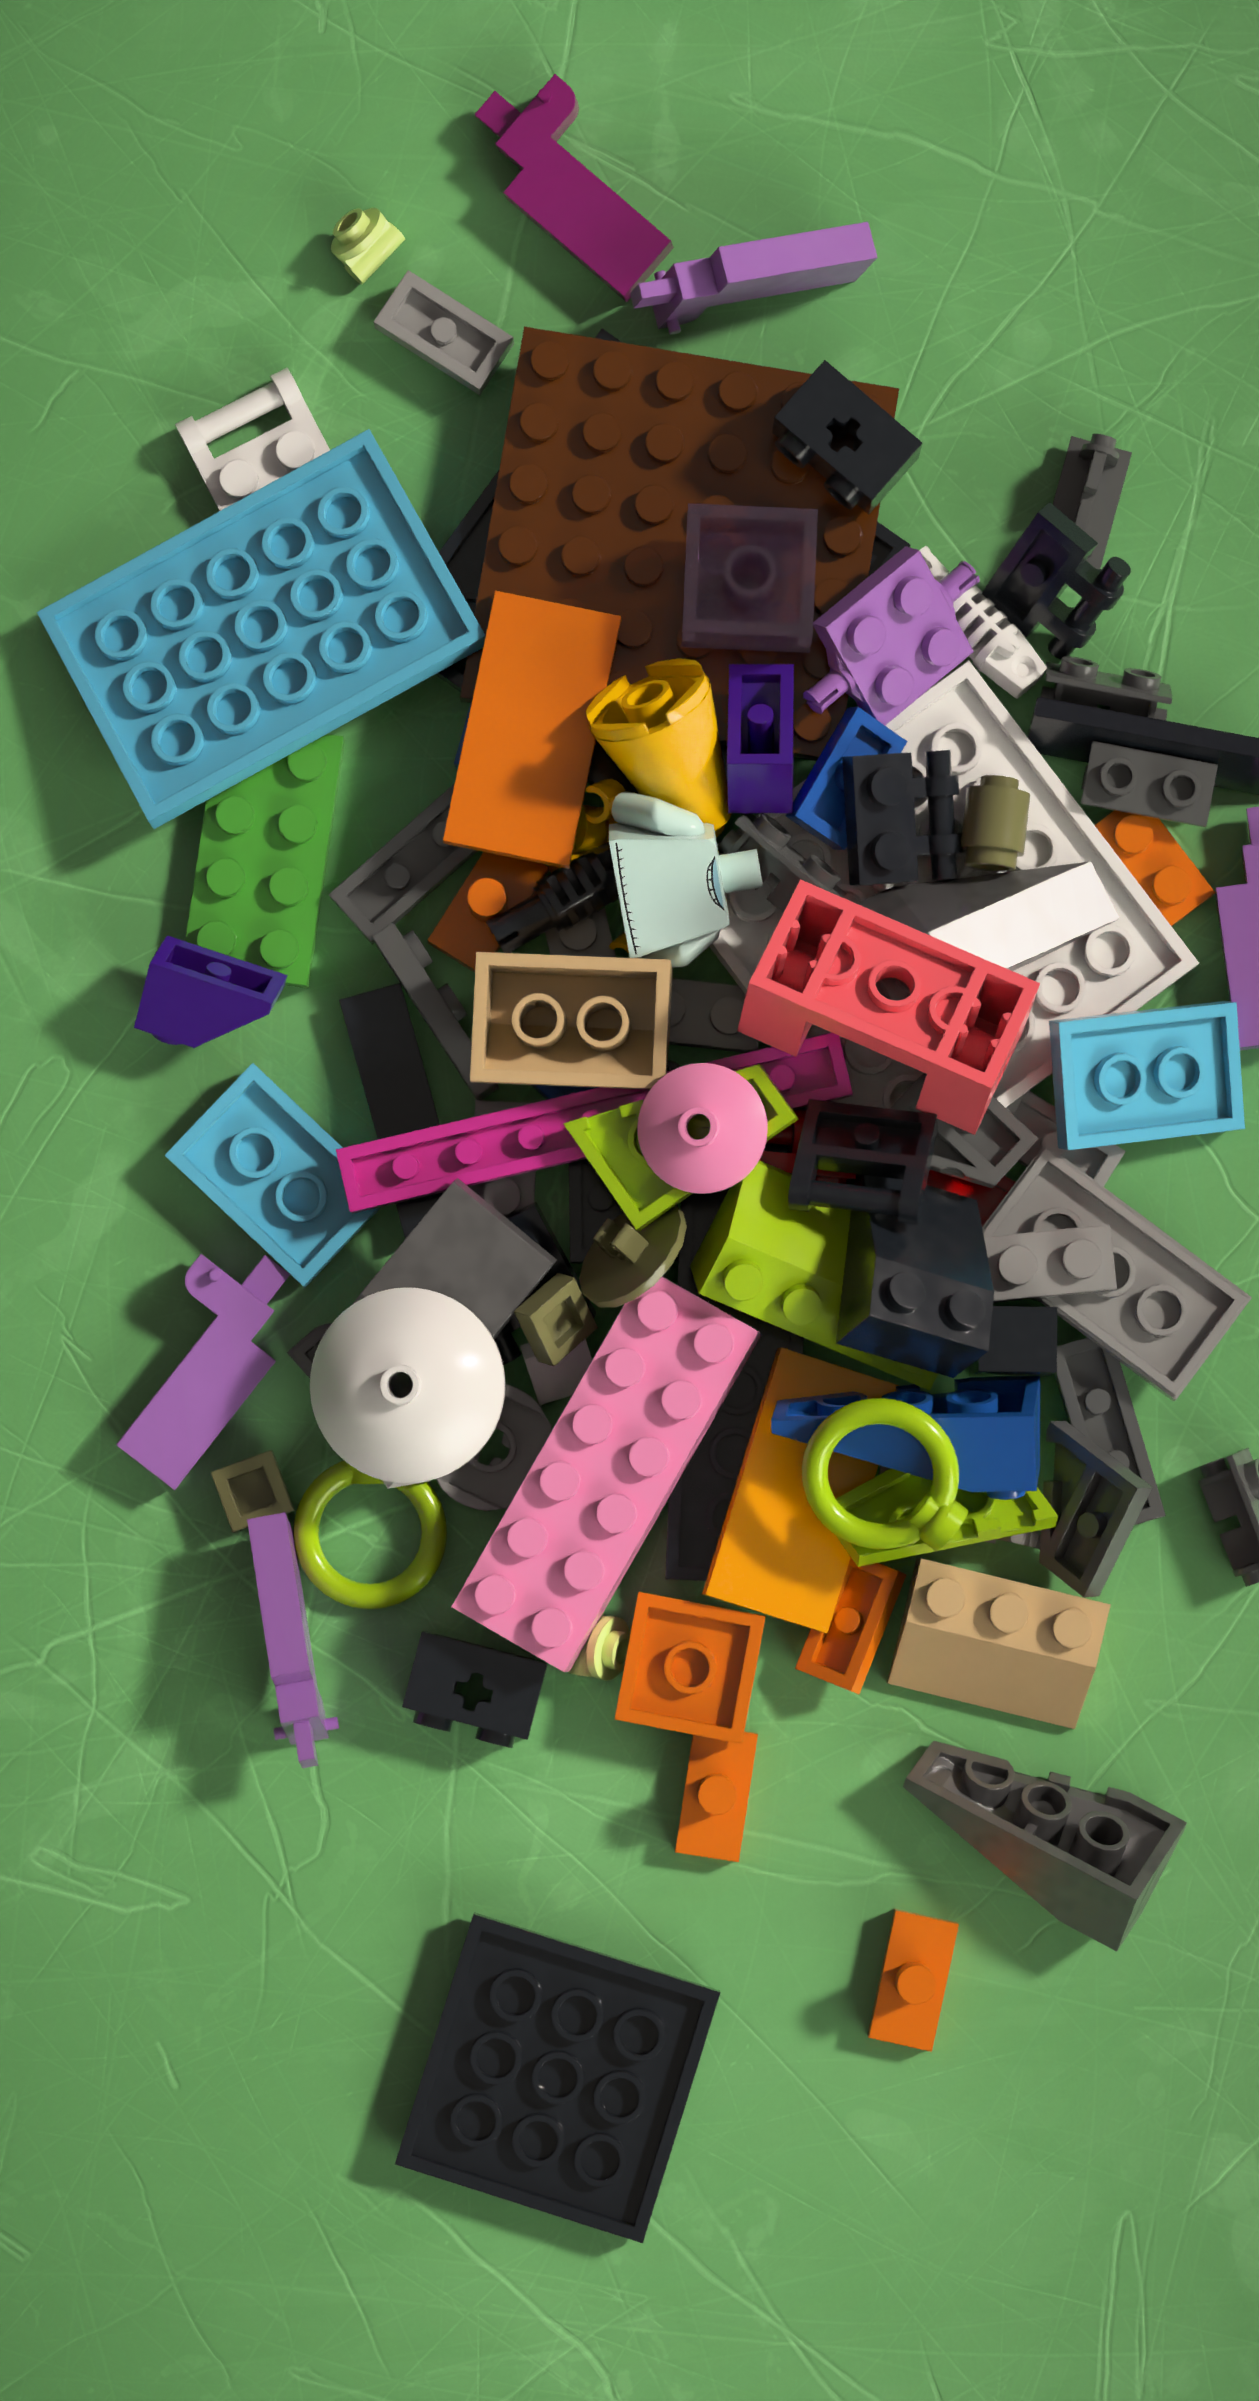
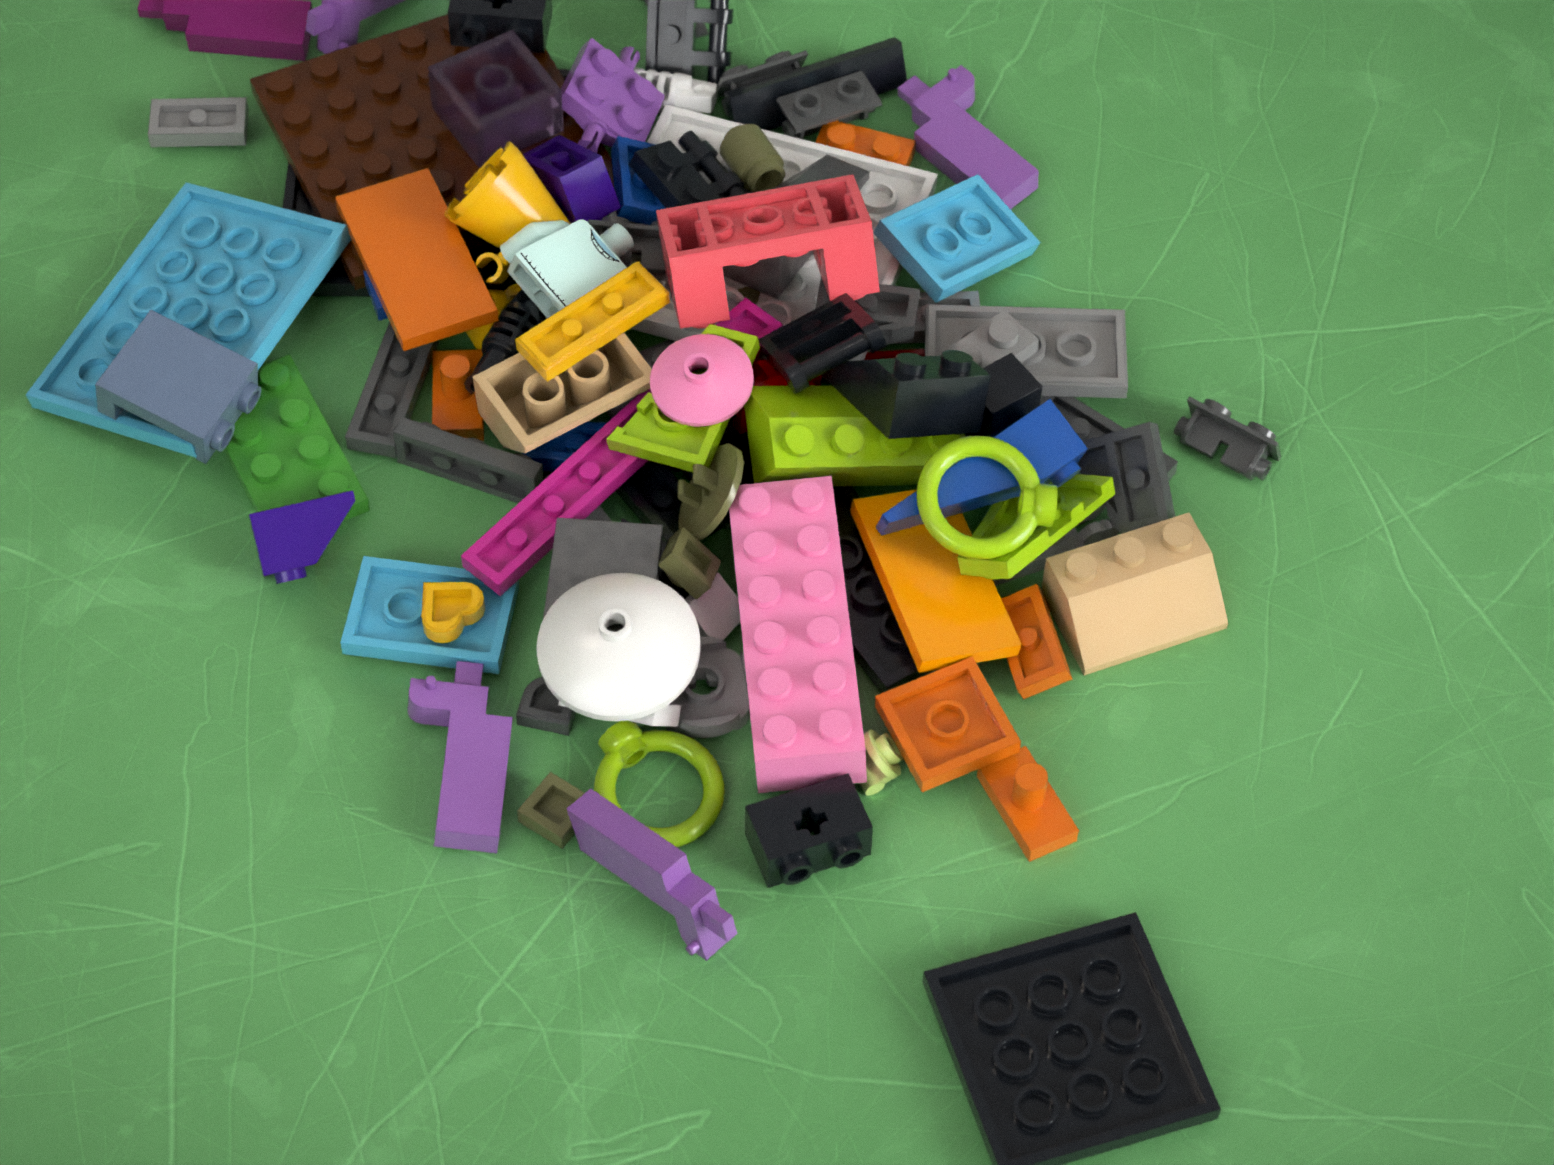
camera: 35 degrees left, 30 degrees down
(179, 741) = (180, 384): none -> sand blue panel
(262, 458) = (115, 251): white plate -> none
(291, 1194) = (449, 608): none -> yellow tile
(364, 242) = (112, 106): yellowish green plate -> none
(391, 1075) = (463, 519): black tile -> none
(641, 973) = (592, 321): none -> yellow tile
(913, 1980) = (1257, 833): orange tile -> none
(1068, 1848) = (1309, 682): flat silver wedge -> none

